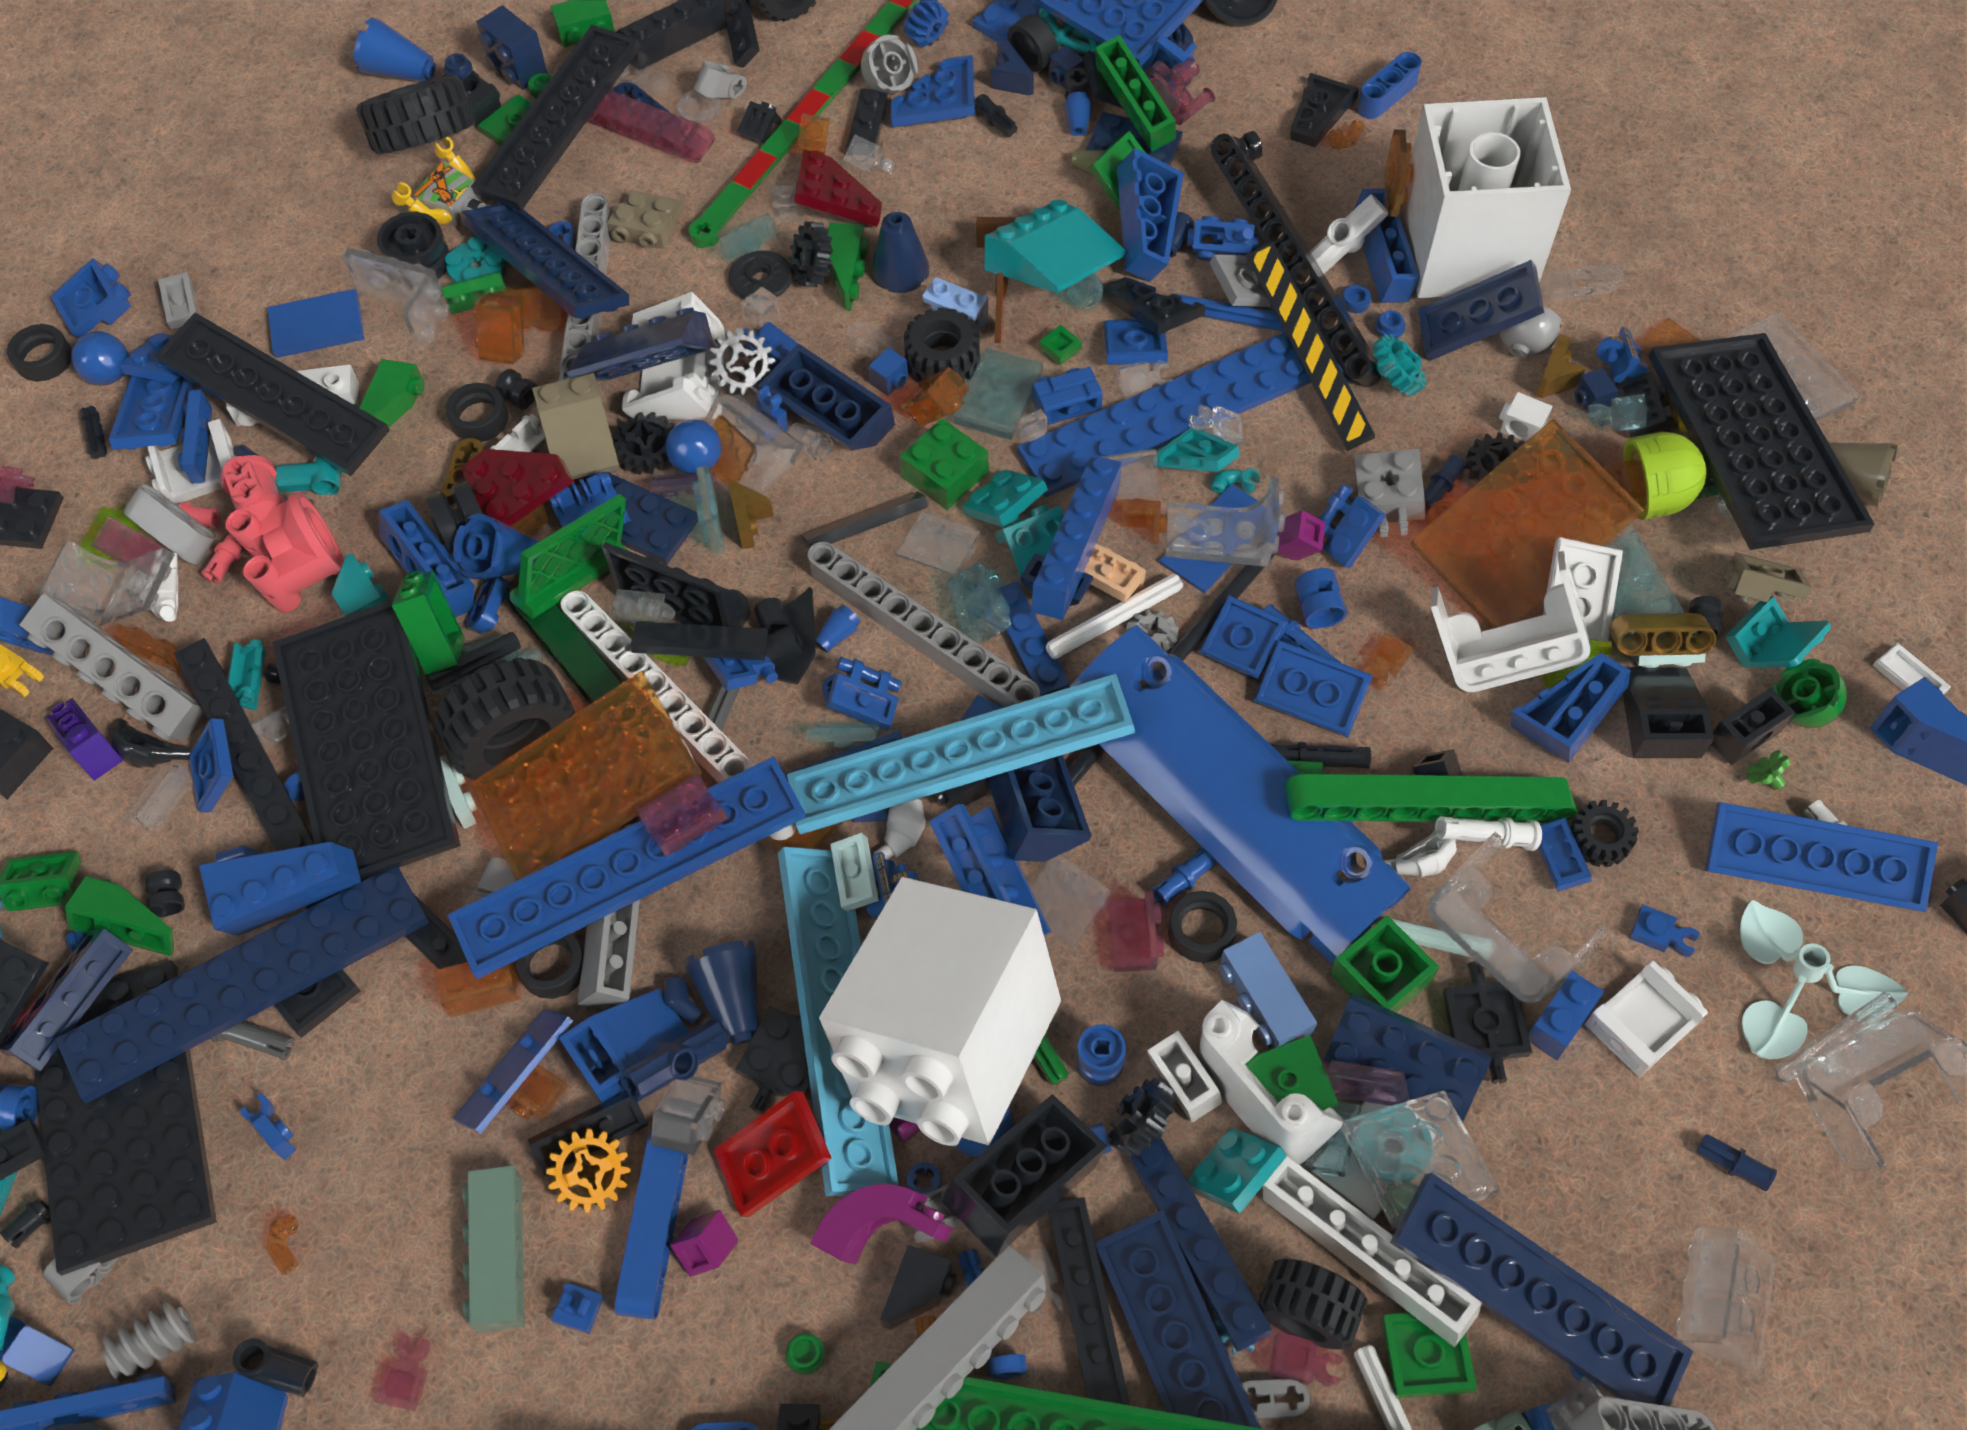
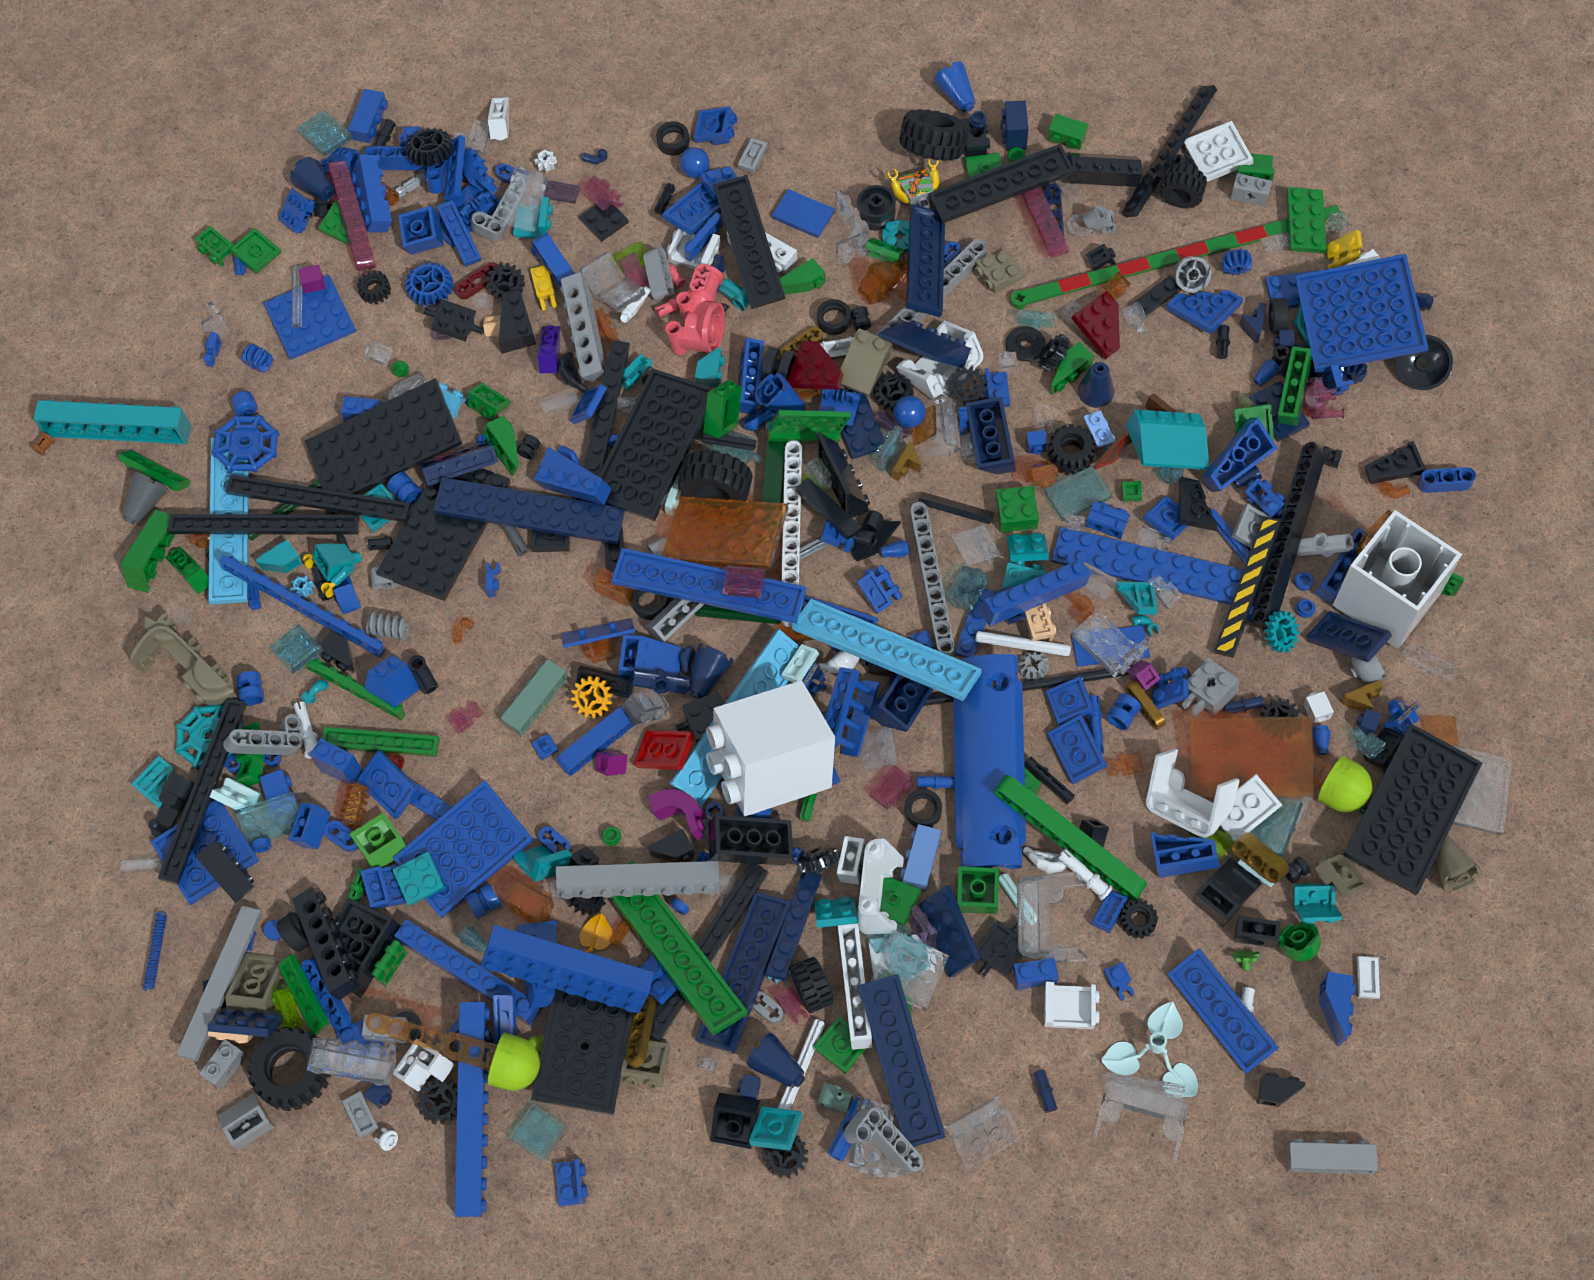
camera: 45 degrees right, 5 degrees up
(695, 882) = (721, 613): none -> dark green axle
(843, 733) = (853, 600): clear light blue plate -> none
(1098, 1063) = (827, 823): blue wheel -> none
(1349, 573) = (1148, 708): none -> pearl gold beam

